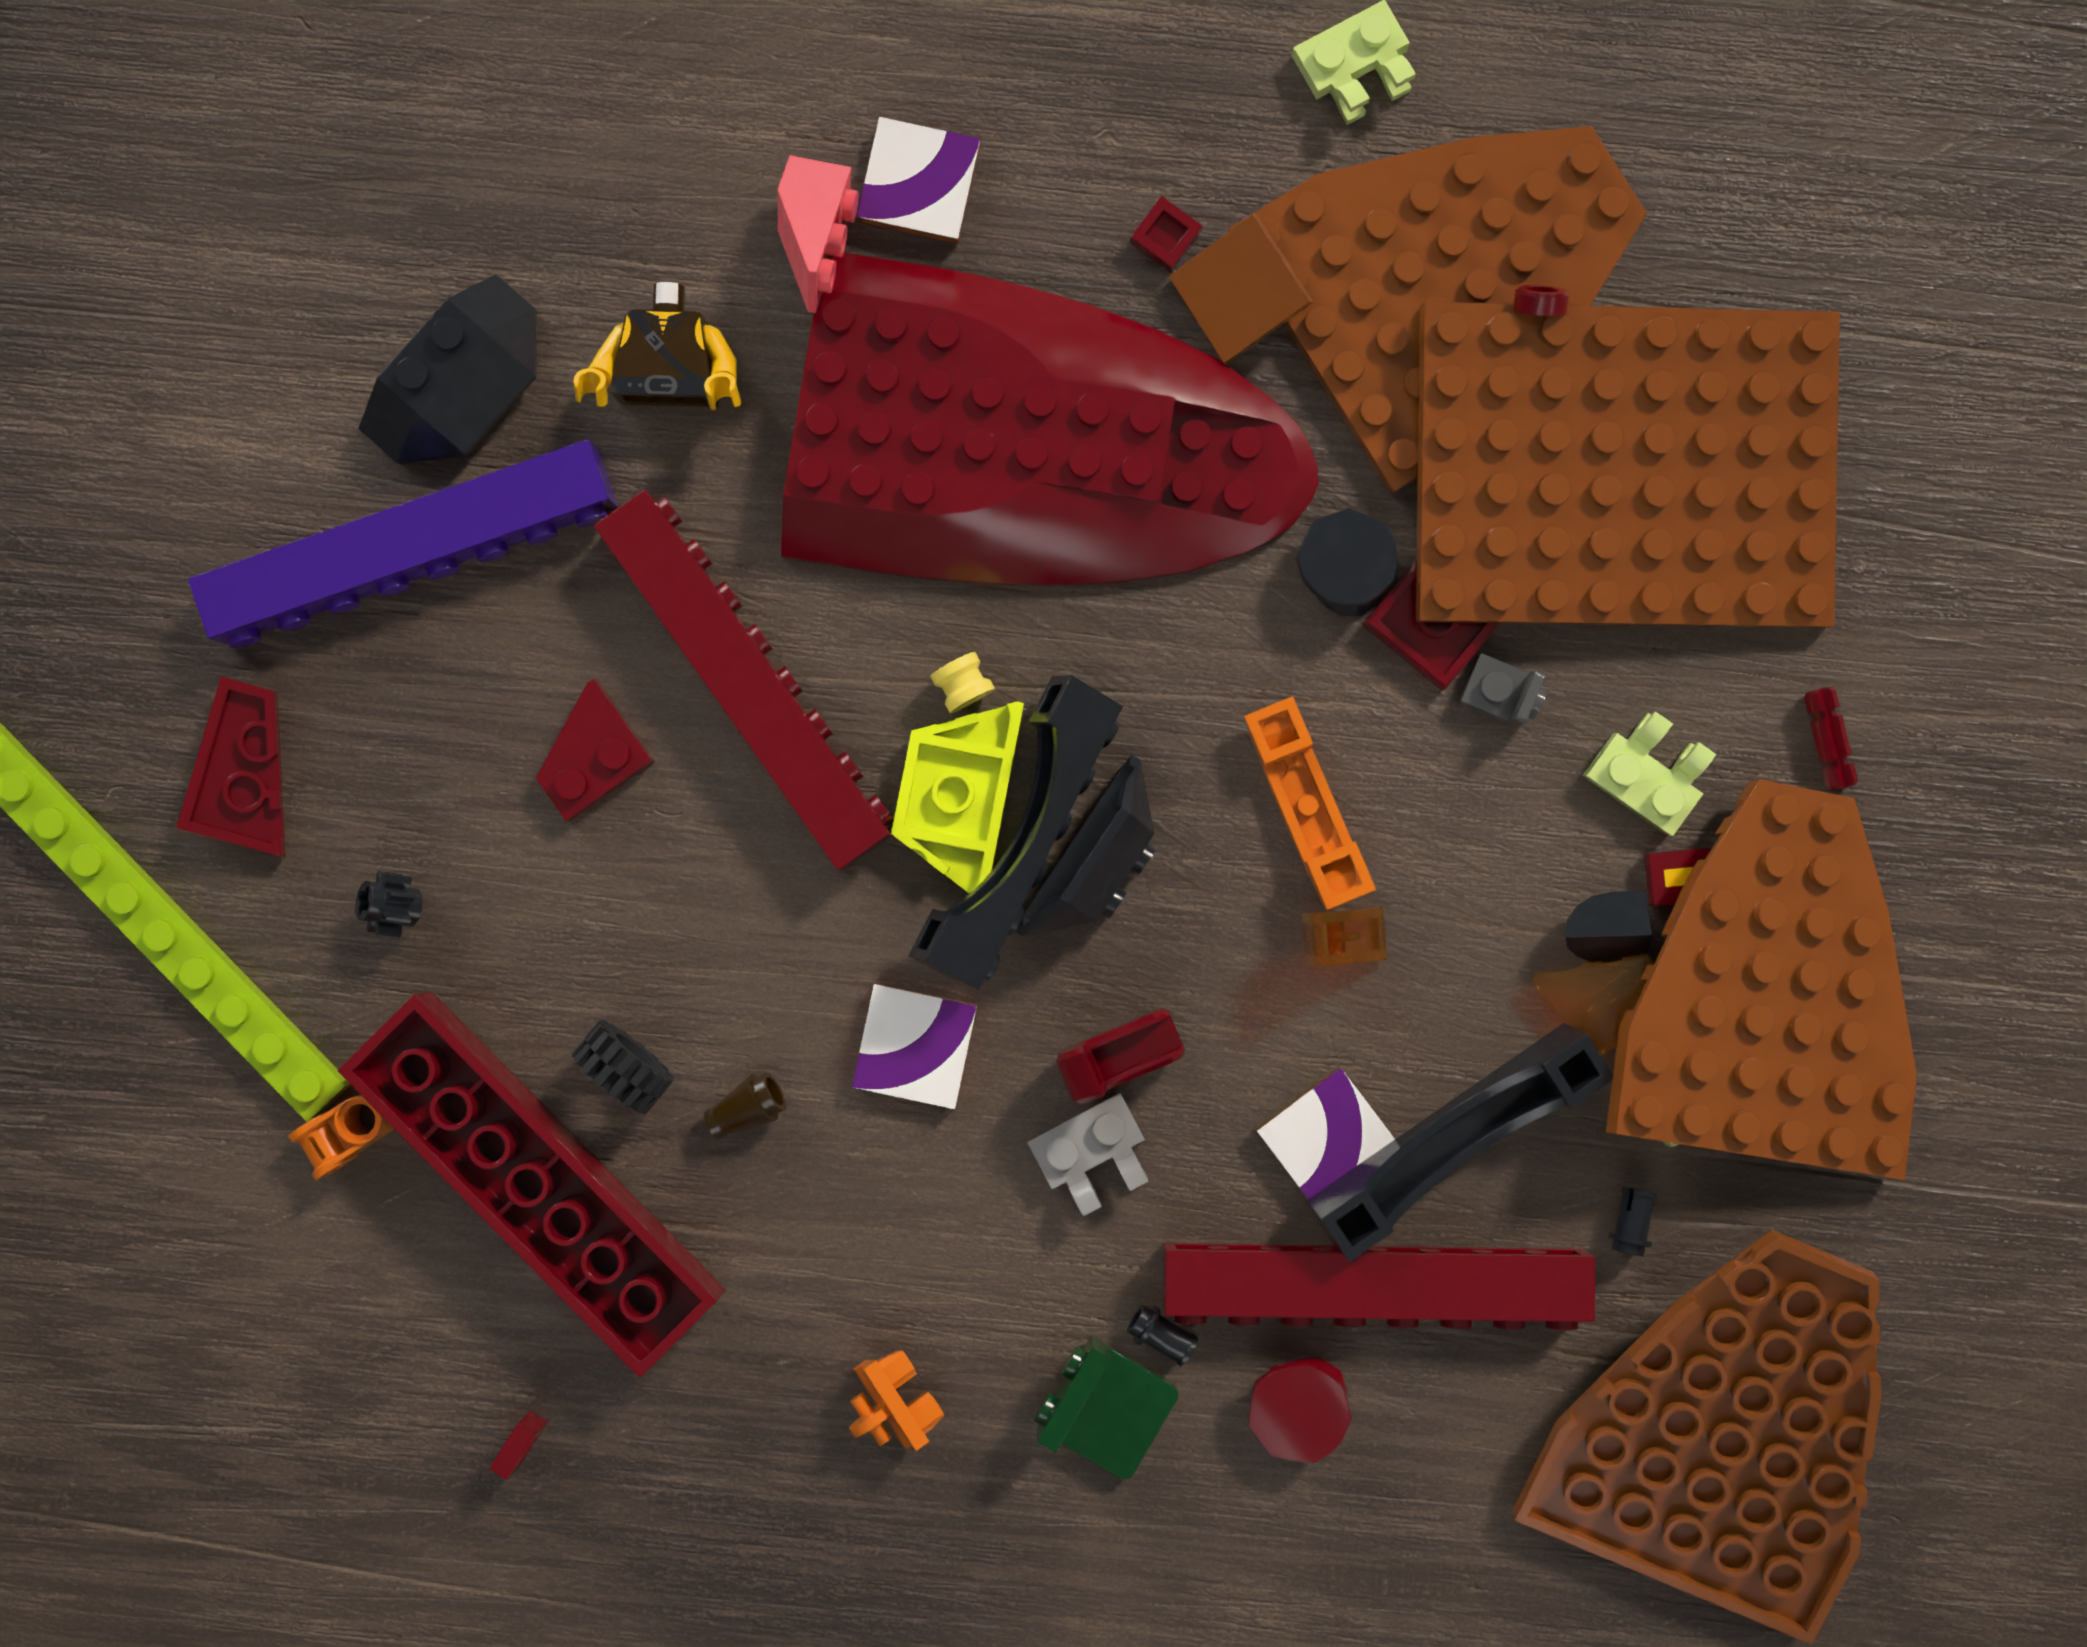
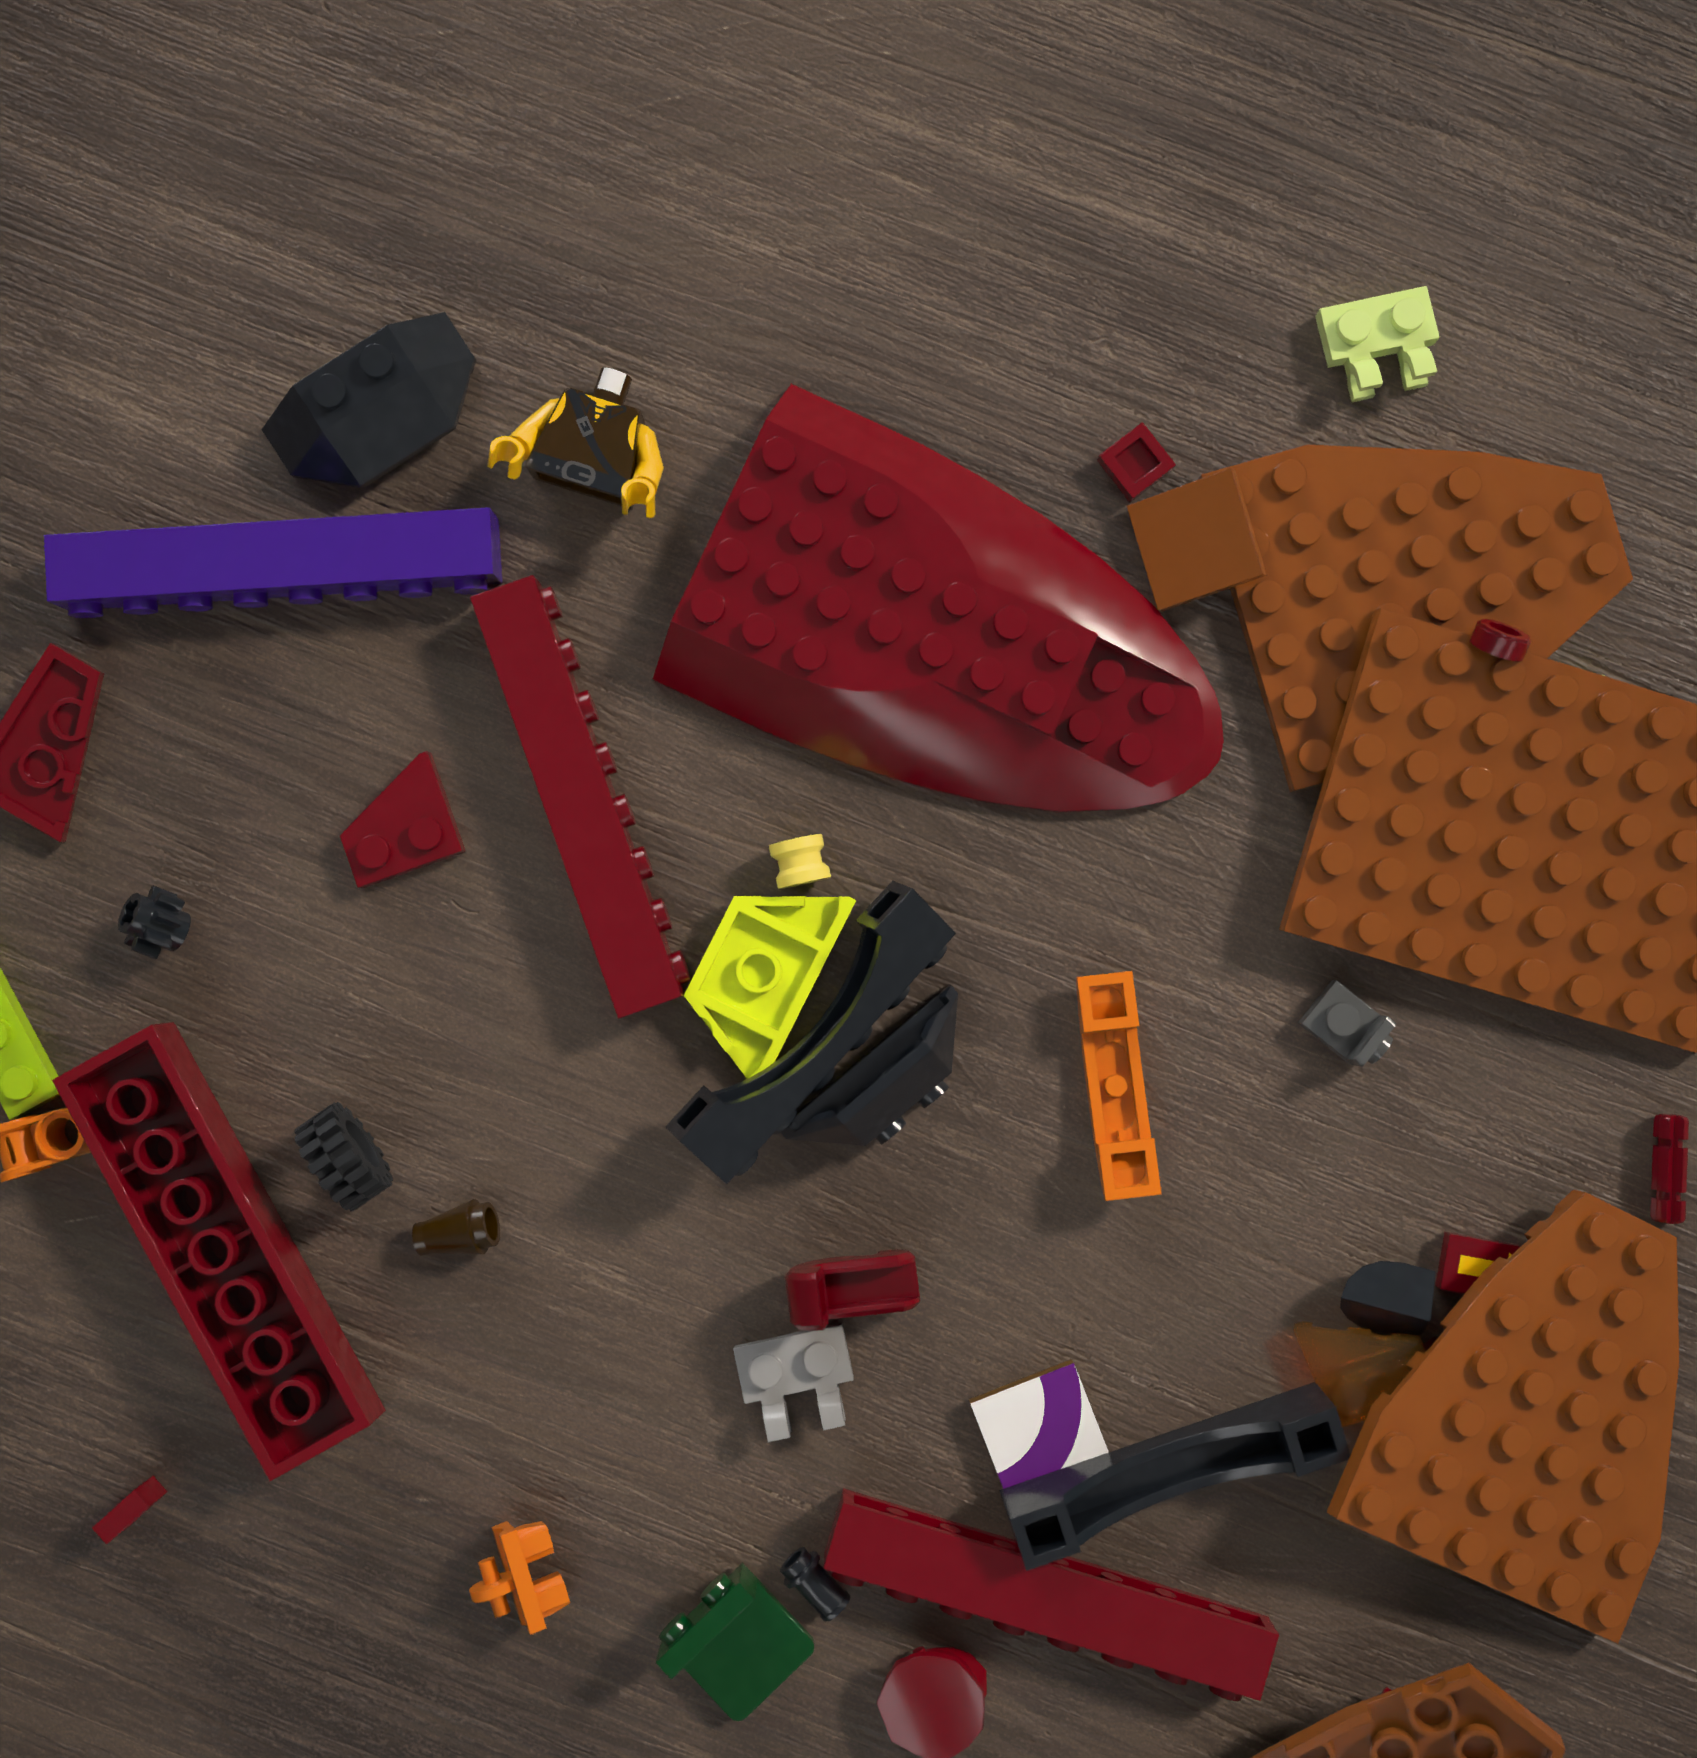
camera: 15 degrees right, 0 degrees up
(812, 216) = (780, 343): coral slope -> none
(914, 1046) = (646, 1216): tile -> none
(918, 180) = (900, 337): tile -> none
(1344, 936) = (1114, 1231): clear orange slope -> none
(1348, 561) = (1227, 848): black hat -> none
(1431, 648) = (1286, 960): dark red tile -> none
(1633, 1222) = (1328, 1606): black pin -> none
(1643, 783) = (1466, 1162): yellowish green plate -> none

